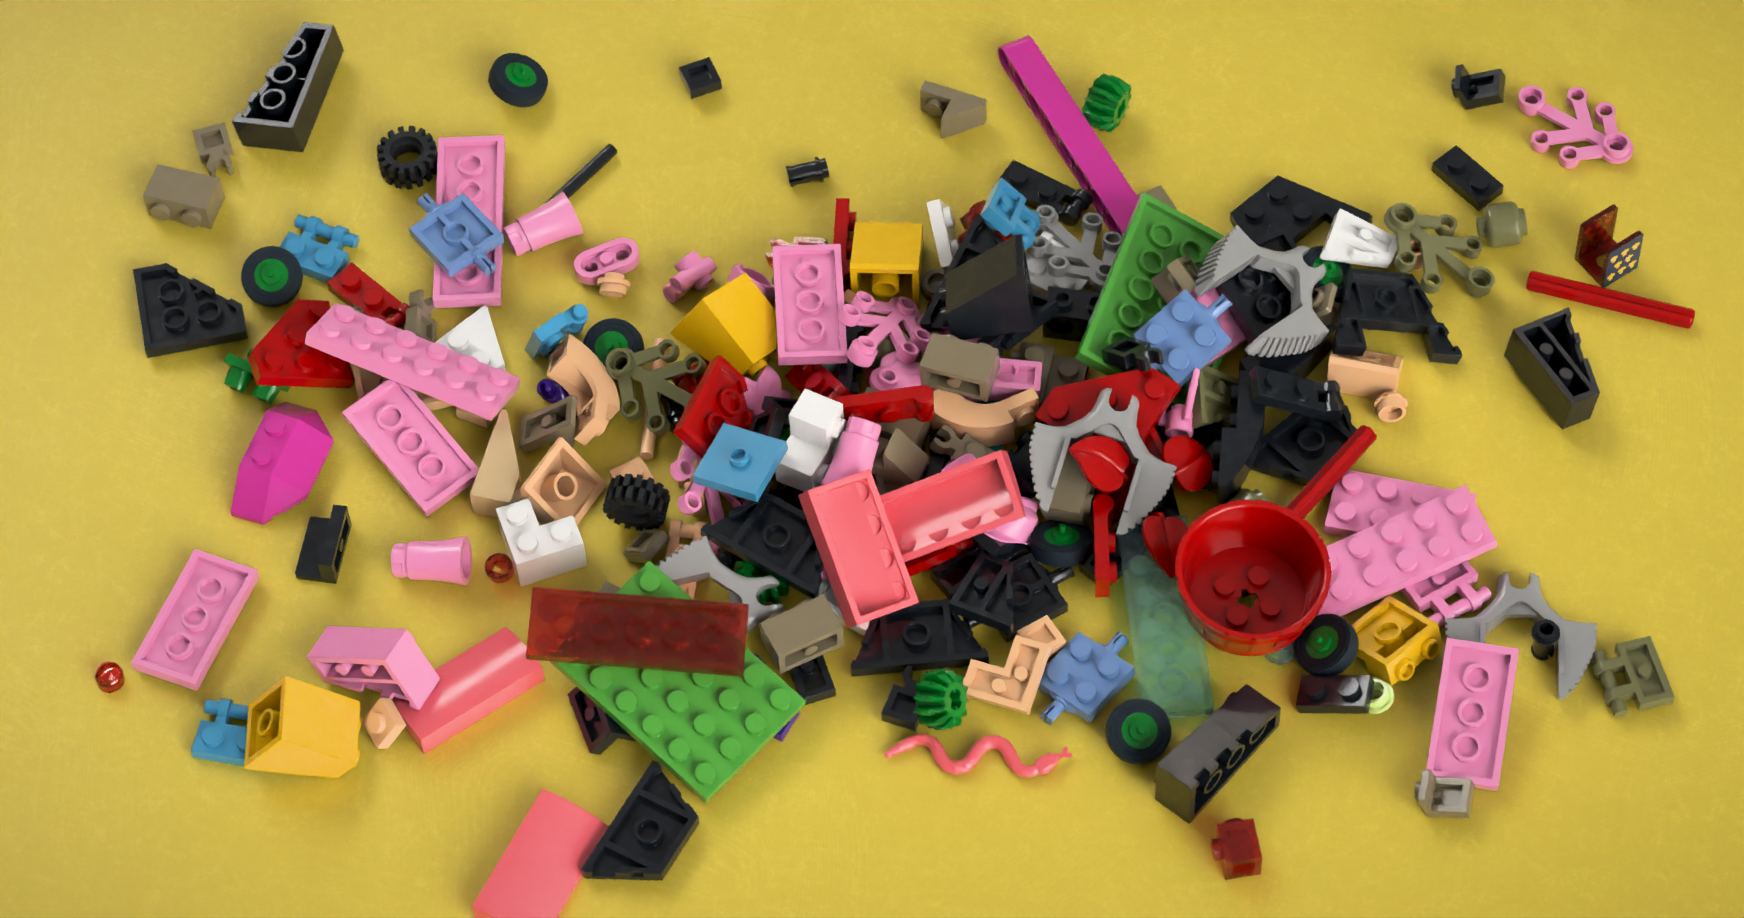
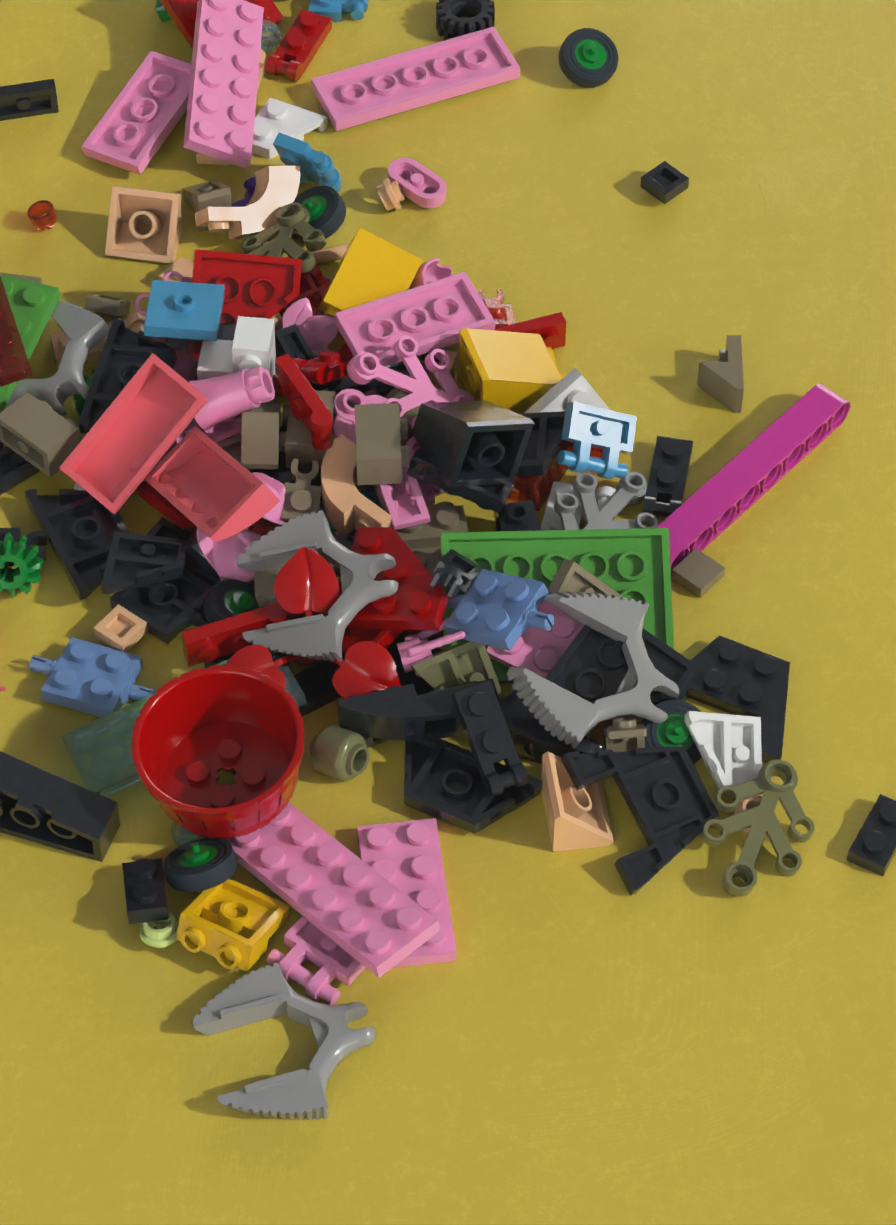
camera: 65 degrees right, 5 degrees down
(280, 463) = (99, 37): dark pink wedge -> none
(419, 316) = (280, 79): dark tan plate -> none
(433, 560) = (30, 169): bright pink plant -> none
(456, 235) = (382, 65): medium blue plate -> none
(498, 475) = (154, 174): tan slope -> none
(536, 549) = (75, 228): white brick -> none
(543, 226) = (432, 126): bright pink plant -> none
(587, 171) = (504, 139): black bar -> none
(636, 502) = (142, 271): black tyre -> none
(692, 273) = (428, 244): bright pink plate -> none
(808, 172) = (601, 297): black pin -> none
(1016, 683) = (58, 617): light nougat plate -> none
(1107, 102) = (795, 487): green gear -> none
(1138, 731) = (37, 734): black wheel -> none
(1333, 471) = (392, 802): red axle -> none
(1390, 406) = (537, 843): light nougat plate -> none
(1444, 795) = (53, 1020): dark tan bracket -> none
(1472, 712) = (158, 1016): bright pink plate -> none
(1502, 224) = (825, 877): olive head -> none
(1545, 636) = (286, 1056): black pin -> none
(1554, 367) = (653, 974): wedge -> none
(1597, 239) = (845, 985): clear red piece -> none
(1610, 299) = (782, 1015): red axle -> none
(1643, 673) = (284, 1173): olive plate -> none

